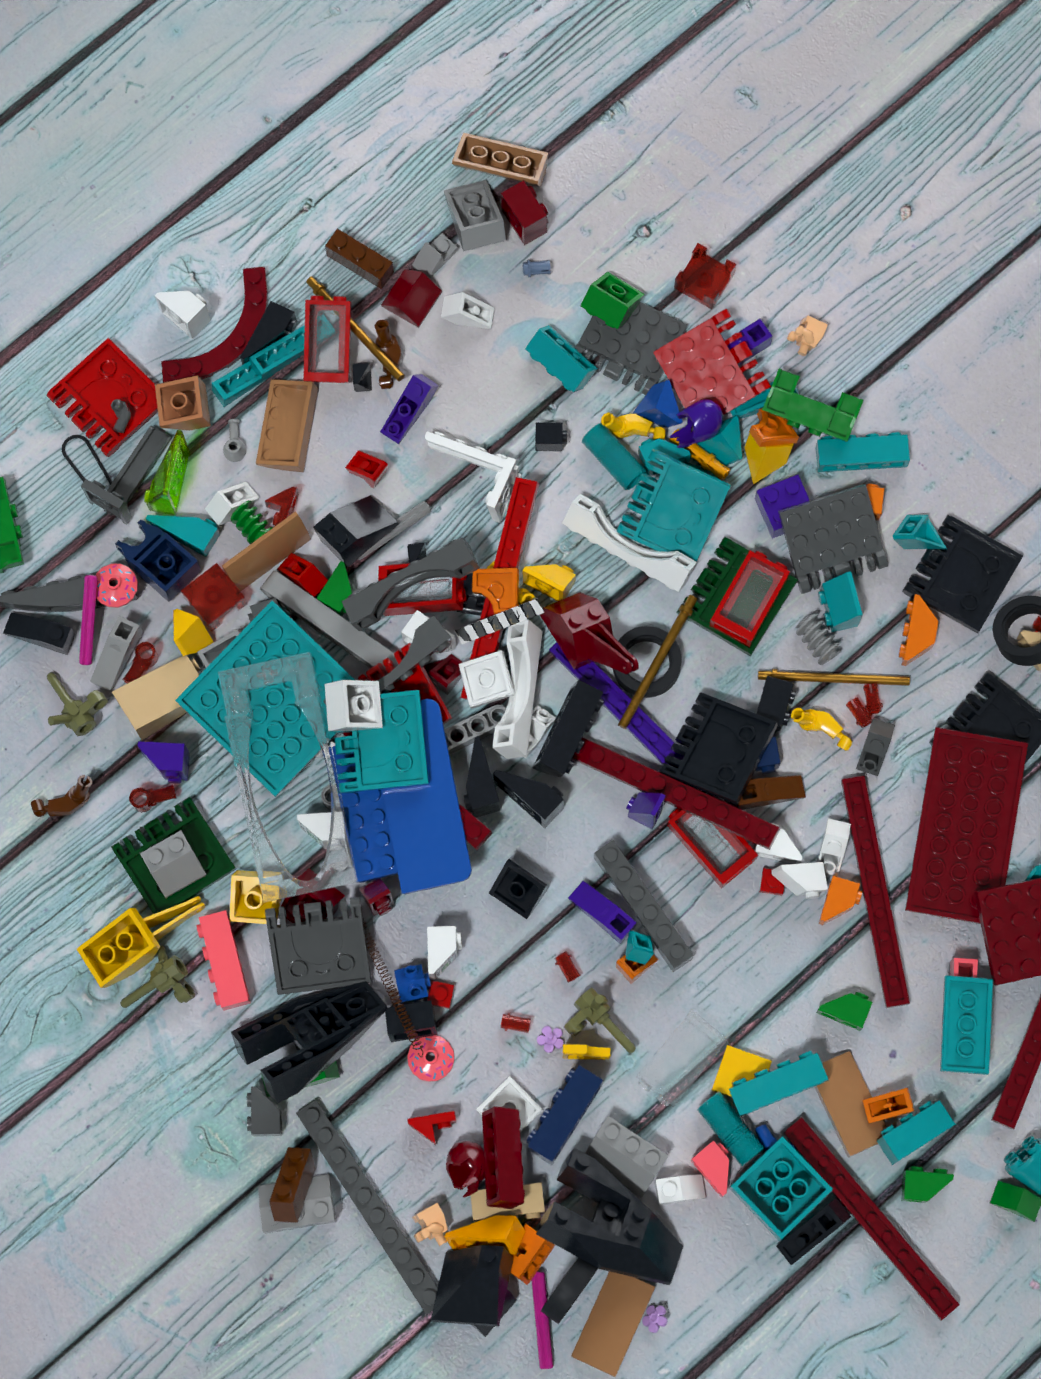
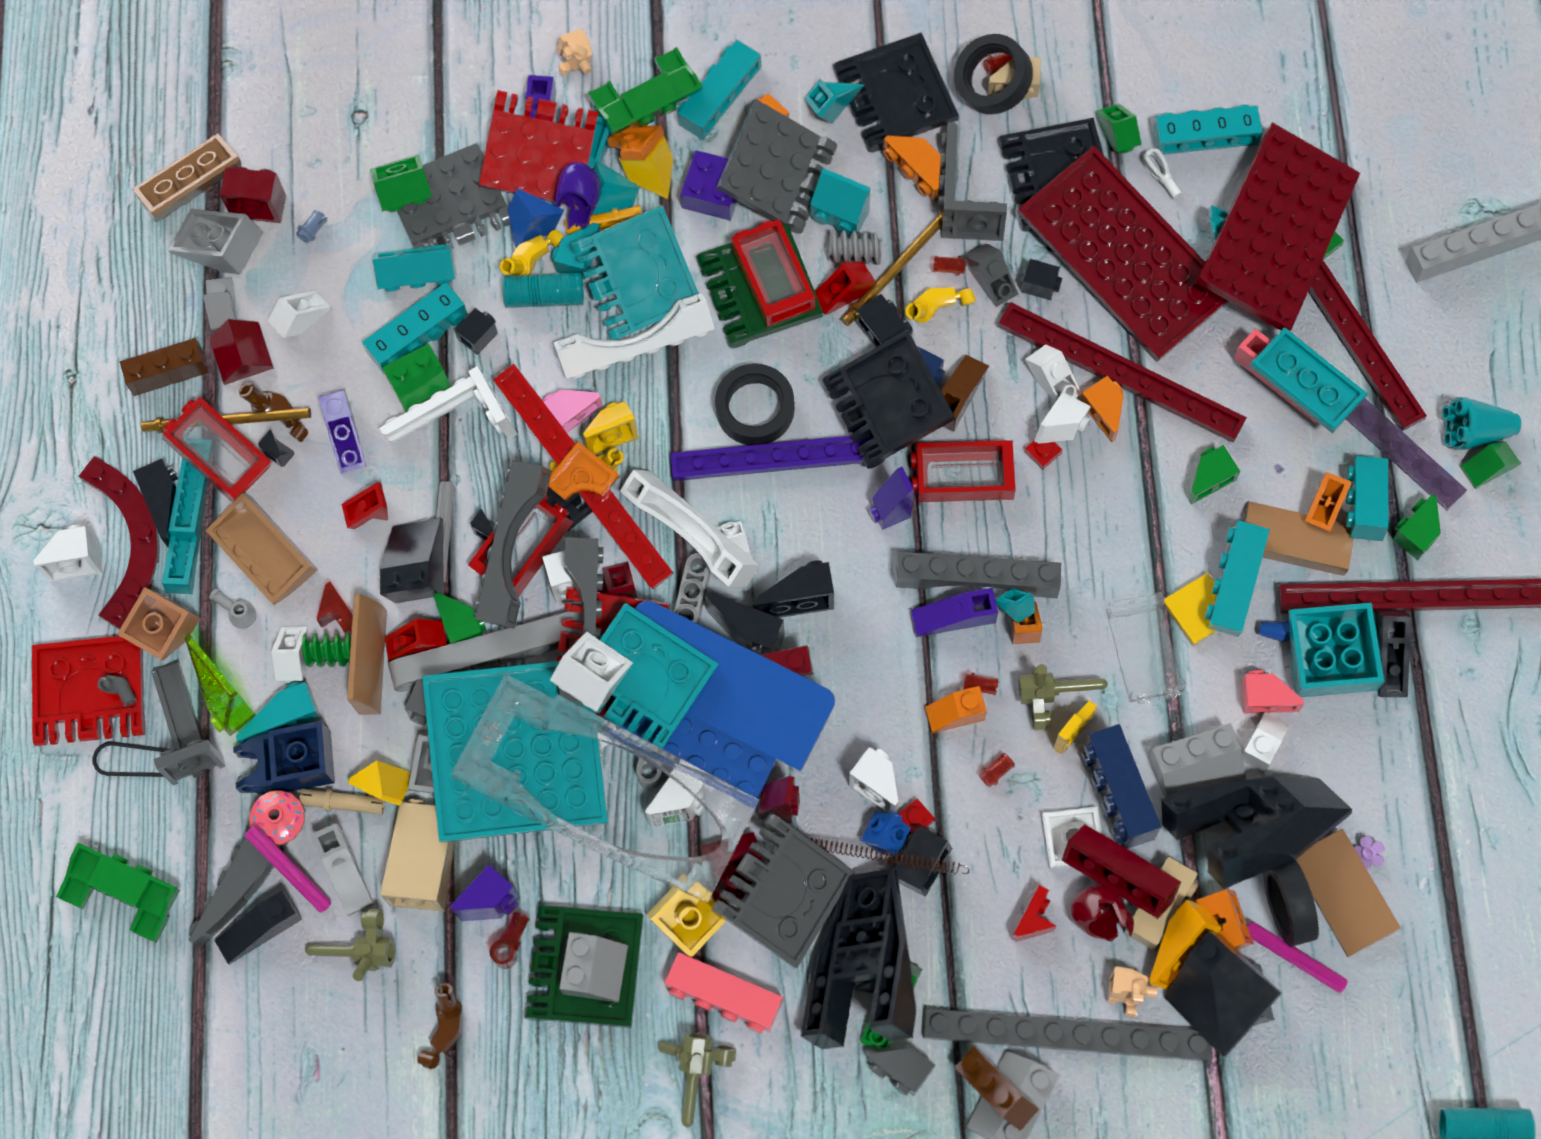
camera: 50 degrees left, 5 degrees down
(129, 944) = (635, 1069): yellow slope -> none
(139, 664) = (371, 855): clear red pin -> none
(156, 609) = (348, 802): none -> tan pin
(213, 596) = (365, 735): clear red panel -> none
(434, 1069) = (969, 886): coral dish -> none
(483, 426) = (416, 377): none -> green slope
(486, 679) = (656, 550): white tile -> none
(499, 621) = (614, 494): sticker -> none
(518, 395) = (416, 326): none -> teal brick
(518, 889) = (873, 671): black slope -> none
(535, 964) = (956, 710): none -> orange slope
(543, 542) = (572, 406): none -> bright pink slope
(550, 1038) = (1035, 750): lavender plant -> none
(568, 730) = (762, 514): black slope -> none
(586, 633) = (687, 433): dark red slope -> none
(677, 794) = (913, 459): dark red plate -> none
(685, 611) = (739, 334): pearl gold bar -> none
(704, 277) = (448, 97): clear red panel -> none
(724, 1122) = (1235, 653): teal piece -> none
(781, 850) = (1013, 420): white slope -> none
(783, 654) = (844, 286): none -> red slope
(872, 699) = (946, 245): clear red pin -> none
(899, 784) = (1041, 279): none -> black brick
(900, 696) = (965, 218): none -> dark grey bracket
(975, 1133) = (1406, 454): none -> clear purple plate

